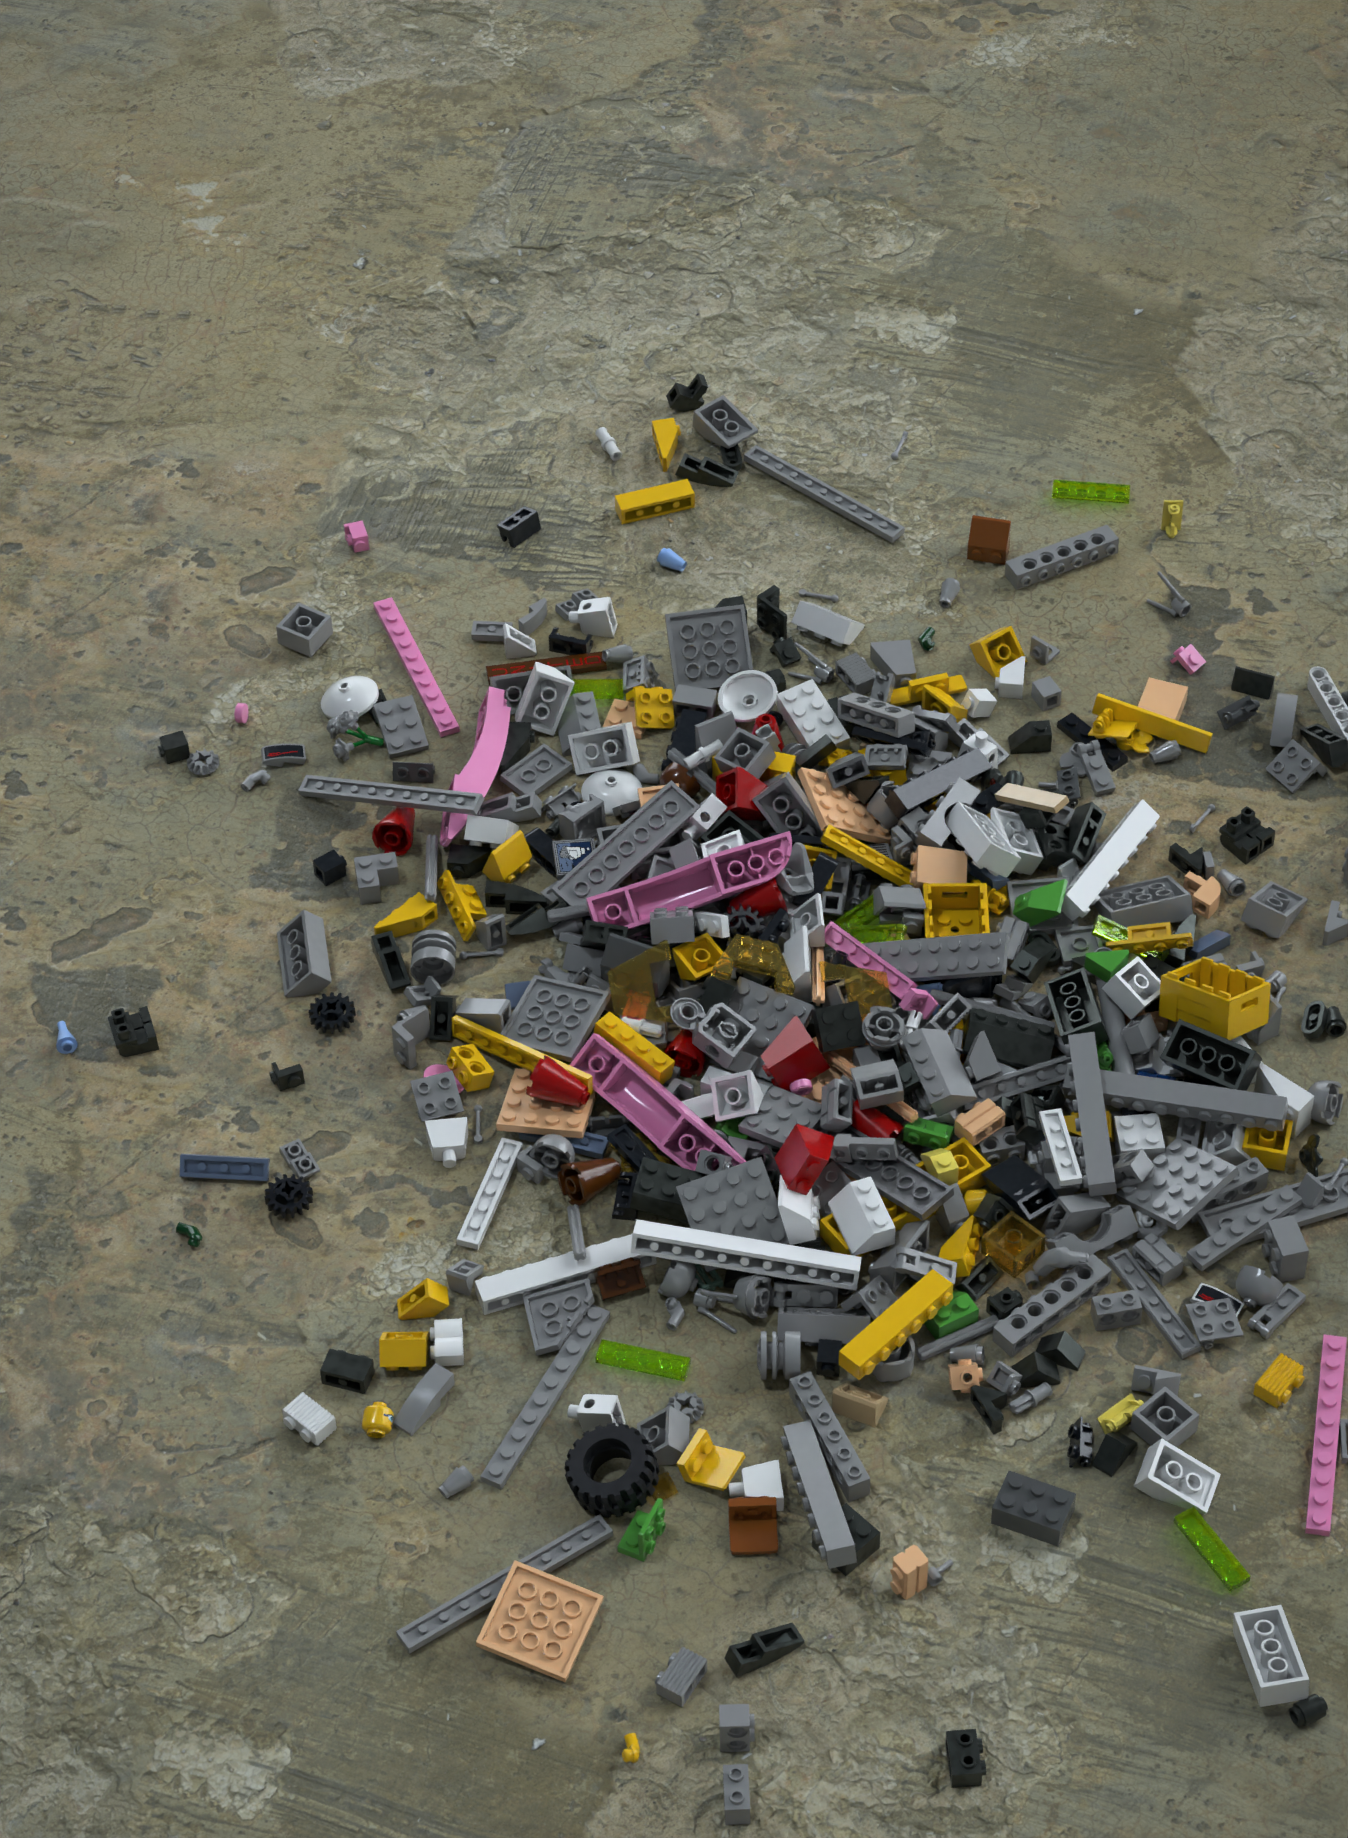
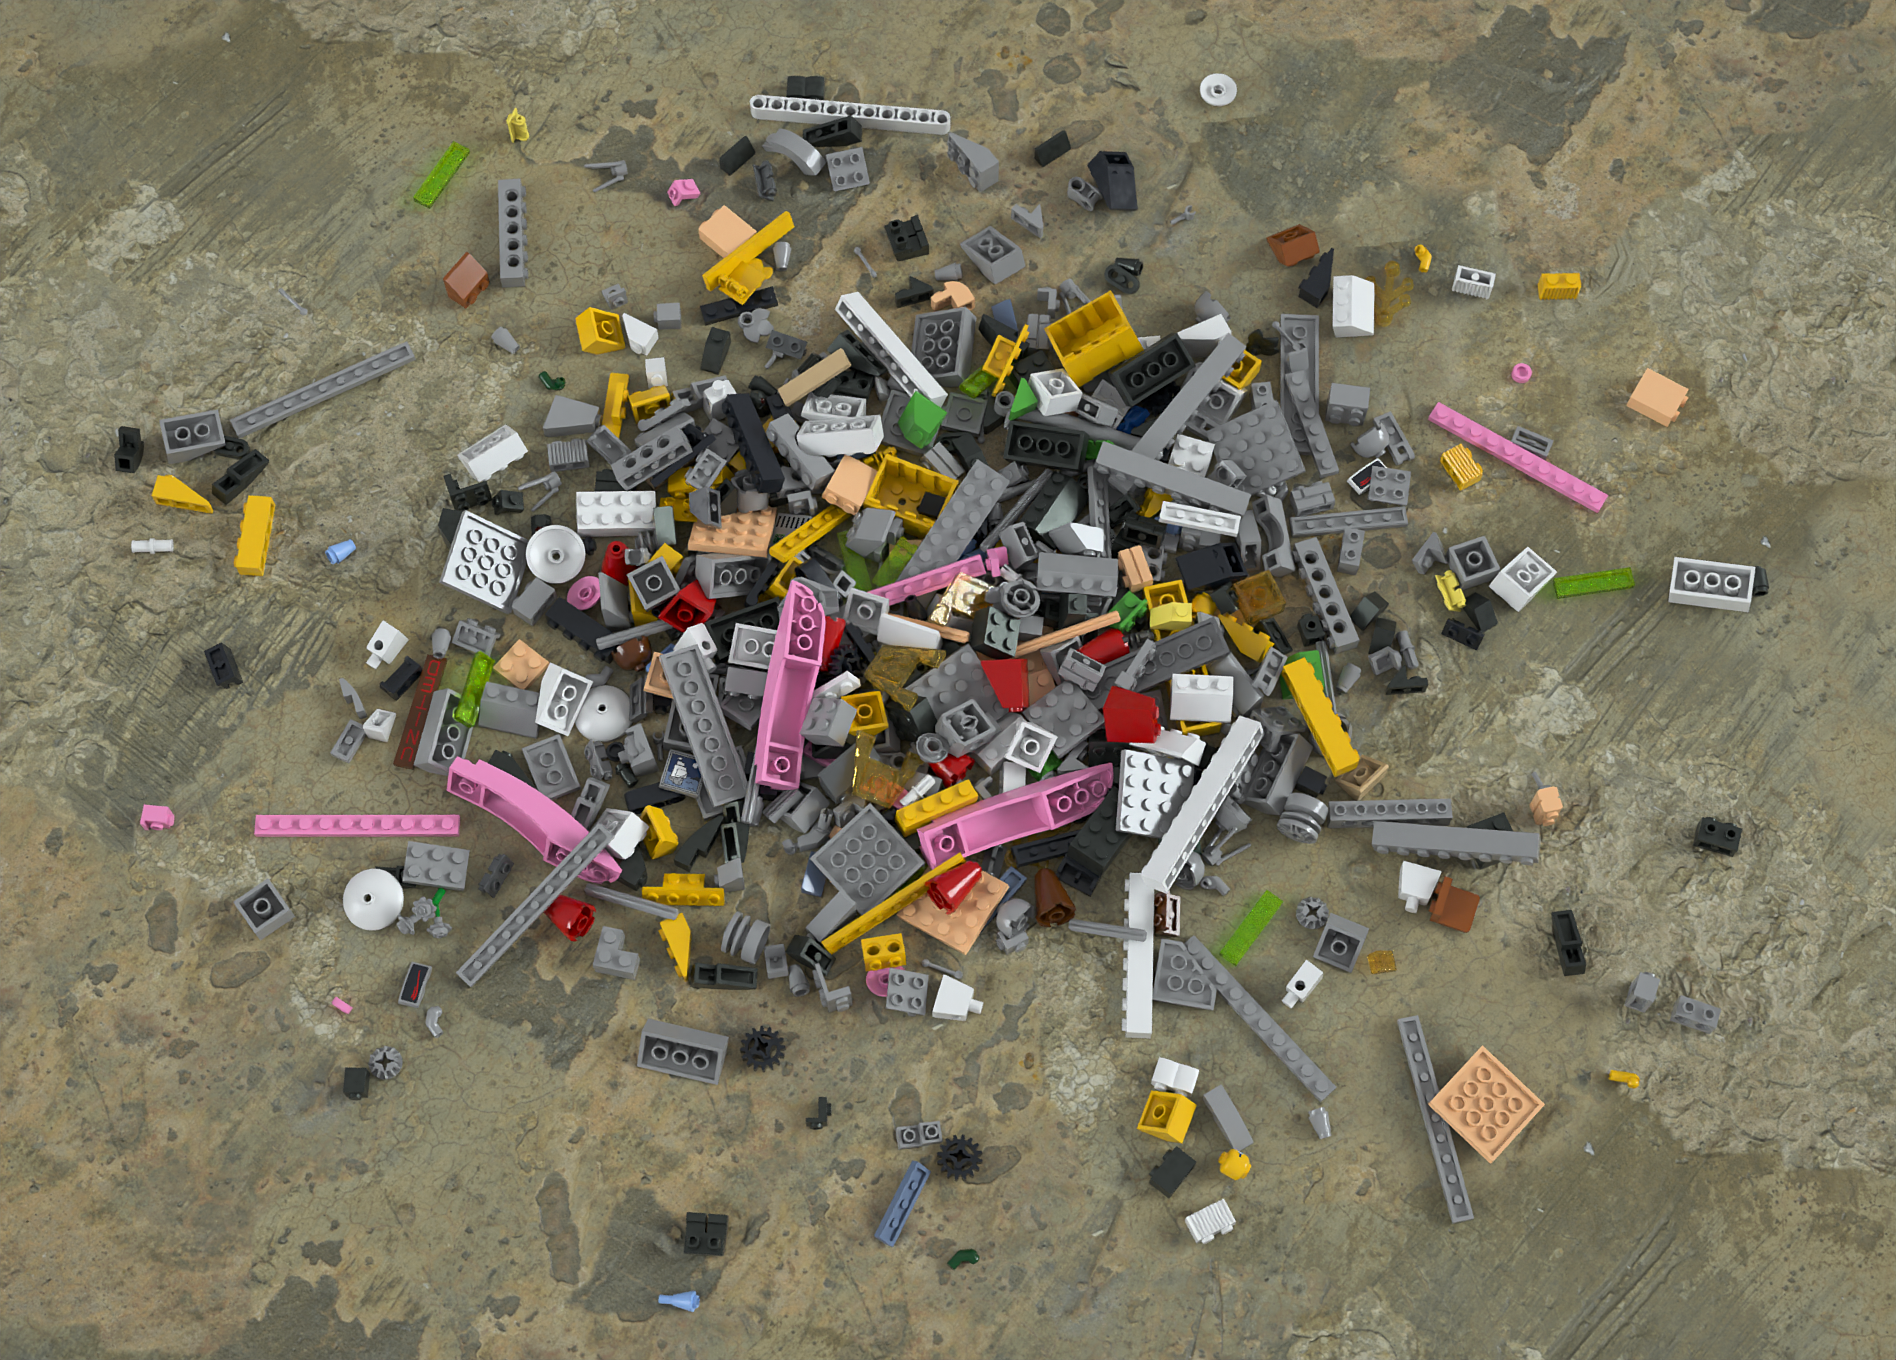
camera: 70 degrees left, 20 degrees up
(330, 867) = (583, 990): black brick -> none
(423, 1301) = (1123, 1084): yellow slope -> none
(462, 1275) = (1109, 1037): light grey slope -> none
(489, 1193) = (1027, 986): white plate -> none
(499, 952) = (751, 880): light grey hinge -> none
(544, 698) = (479, 727): white slope -> none
(573, 604) = (352, 654): light grey slope -> none
(597, 933) = (805, 783): pearl dark grey hinge -> none
(625, 1492) = (1396, 985): black tyre -> none
(642, 1532) = (1428, 991): bright green bracket -> none
(652, 707) = (525, 637): yellow bracket -> none
(681, 1676) = (1573, 1015): light grey brick -> none
(703, 754) = (625, 617): white pin -> none
(705, 1160) = (1091, 790): light grey brick -> none
(708, 1464) = (1384, 912): yellow bracket -> none
(801, 1087) = (1035, 691): bright pink tile -> none
(802, 593) = (438, 458): light grey hinge -> none
(877, 1084) = (1081, 627): light grey slope -> none
(956, 1374) = (1371, 689): light nougat brick -> none
(1033, 1508) = (1514, 692): dark grey brick -> none
(1052, 1259) = (1294, 572): light grey arm -> none
(1096, 768) = (775, 315): light grey plate -> none
(1207, 865) = (928, 279): light grey tile -> none

